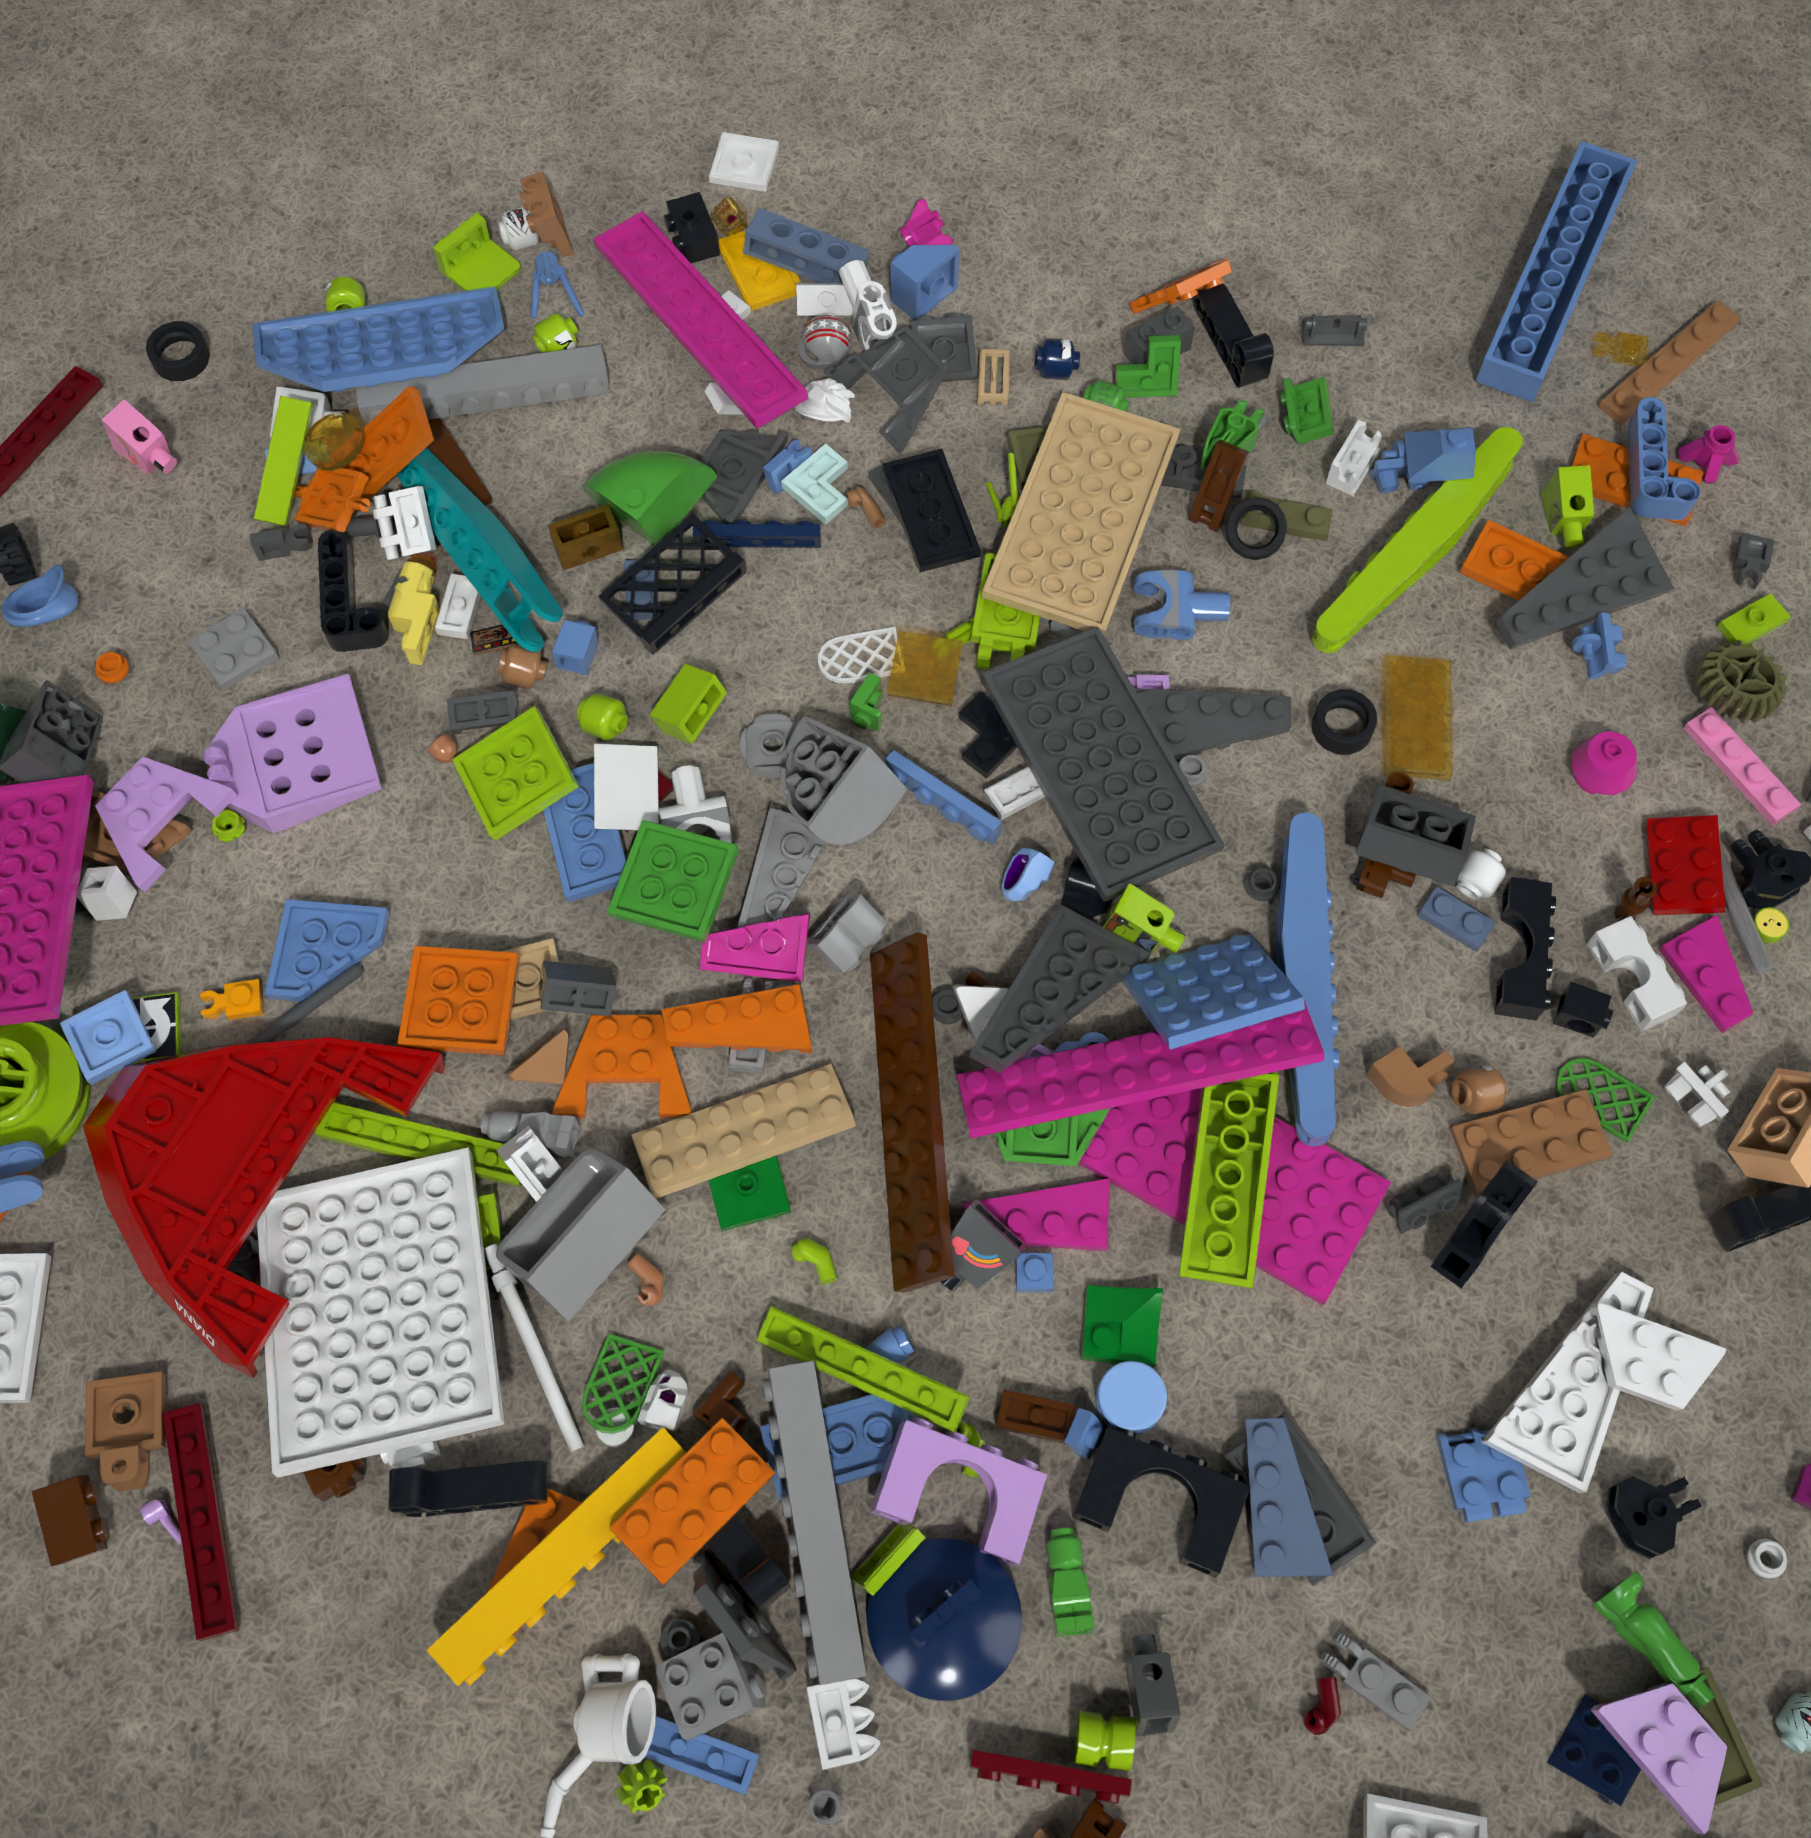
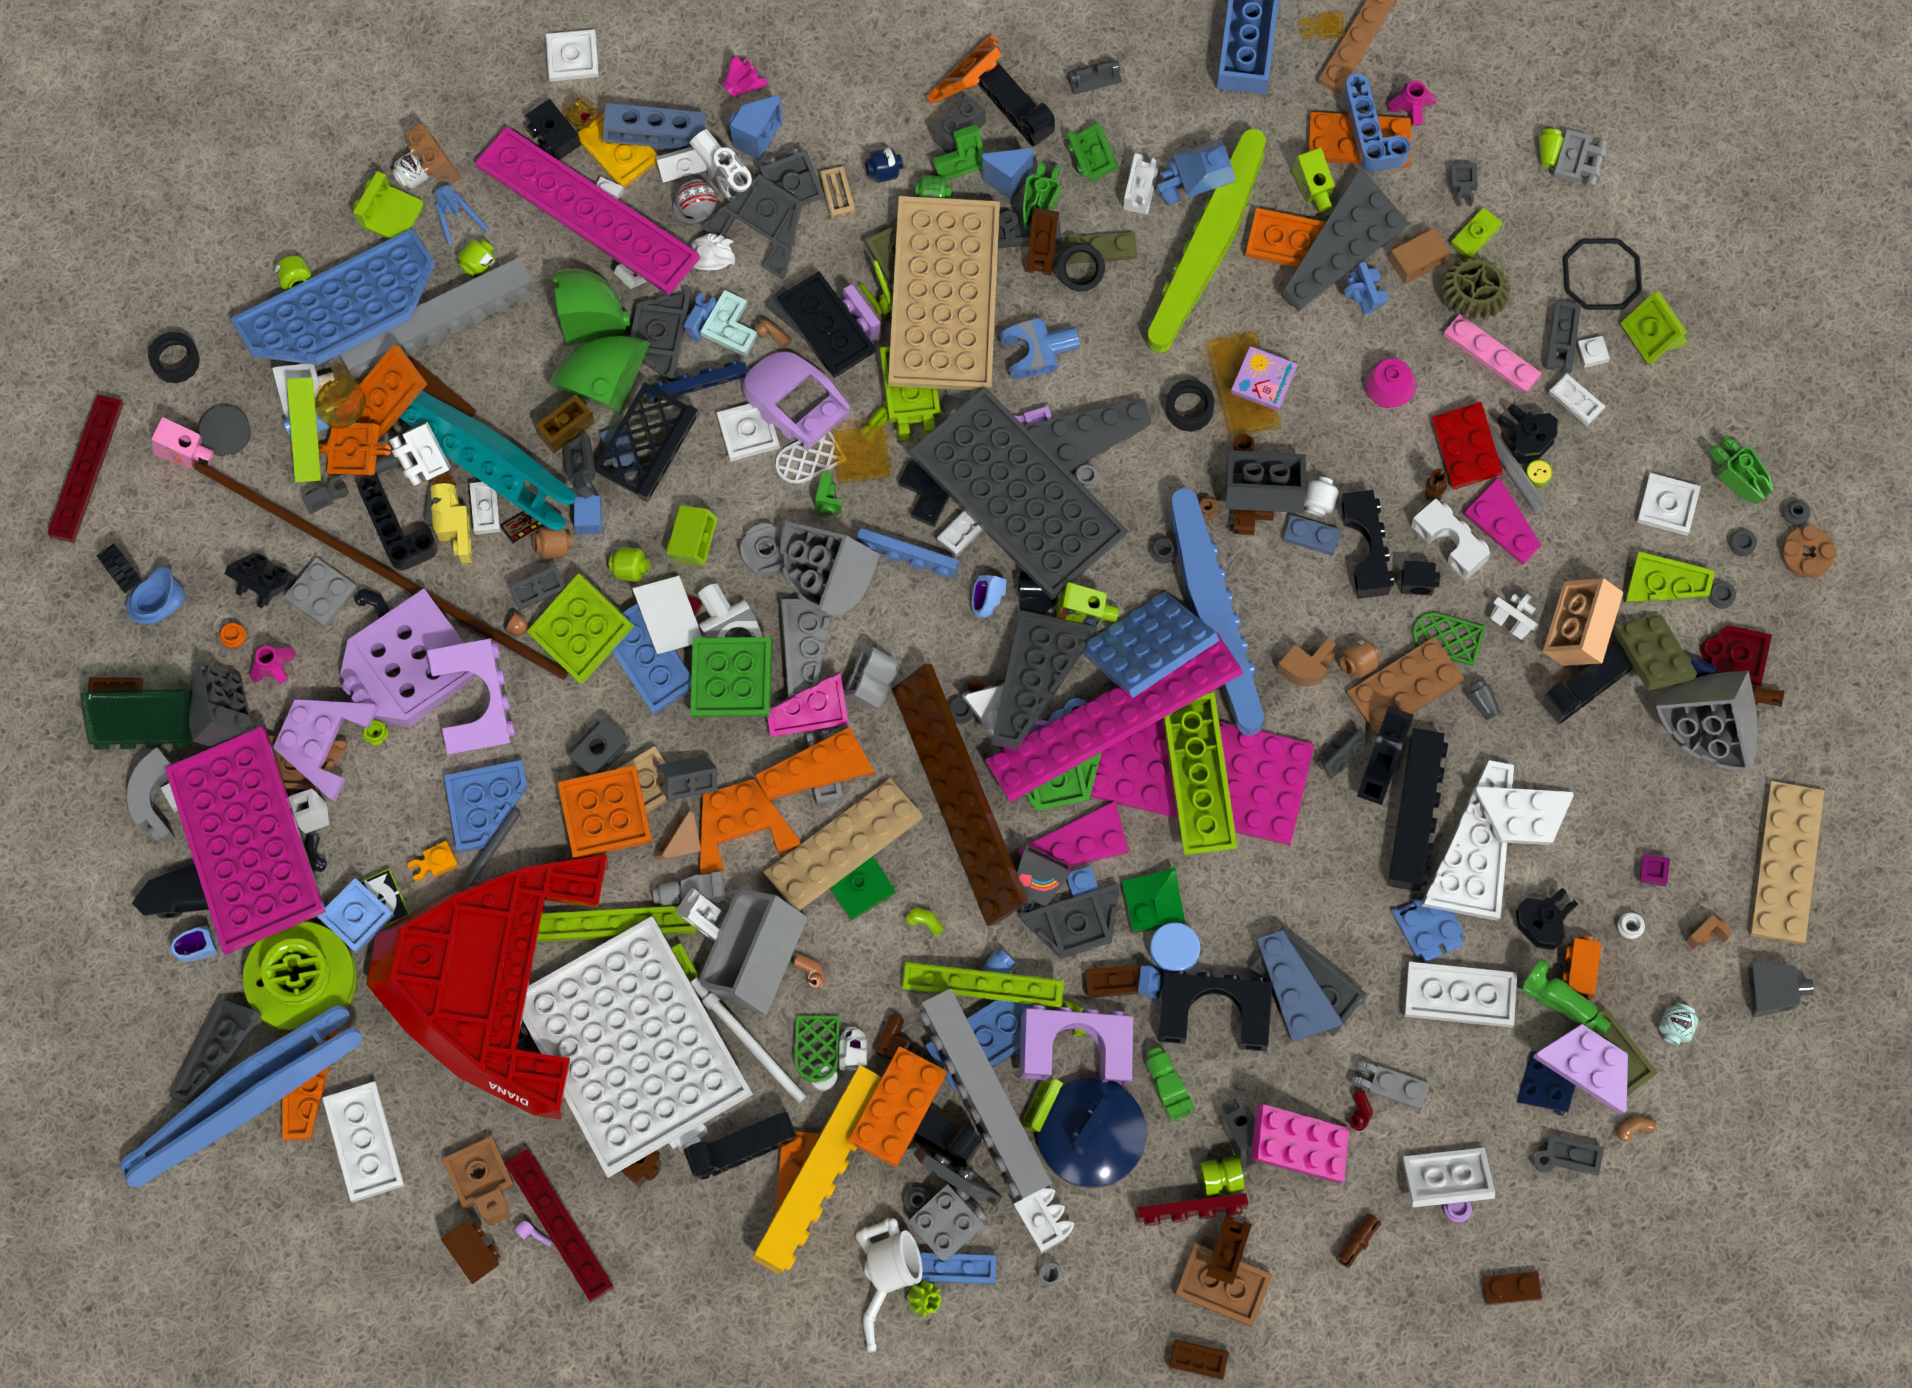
camera: 15 degrees left, 5 degrees up
(91, 948) = (311, 844): none -> black arm
(139, 709) = (270, 663): none -> dark pink rock
(165, 609) = (260, 576): none -> black plate
(201, 444) = (225, 430): none -> dark grey tile
(286, 669) = (372, 598): none -> black arm
(317, 648) = (380, 569): none -> reddish brown piece
(368, 855) = (479, 659): none -> lavender arch
(503, 924) = (604, 734): none -> dark grey brick
(586, 587) = (580, 464): none -> dark grey hinge
(656, 414) = (587, 306): none -> bright green brick
(799, 606) = (746, 432): none -> white tile
(857, 553) = (777, 377): none -> lavender slope
(977, 508) = (861, 312): none -> lavender bracket
(1011, 1322) = (1076, 922): none -> dark grey wing
(1199, 397) = (1007, 170): none -> medium blue slope
(1226, 1731) = (1300, 1143): none -> dark pink plate
(1341, 849) = (1213, 509): none -> medium nougat plate
(1446, 714) = (1264, 378): none -> lavender tile
(1506, 1310) = (1416, 810): none -> black brick
(1506, 1583) = (1460, 994): none -> white plate
(1632, 1189) = (1483, 698): none -> dark grey cone
(1677, 626) = (1419, 255): none -> medium nougat brick
(1688, 1595) = (1583, 965): none -> orange brick

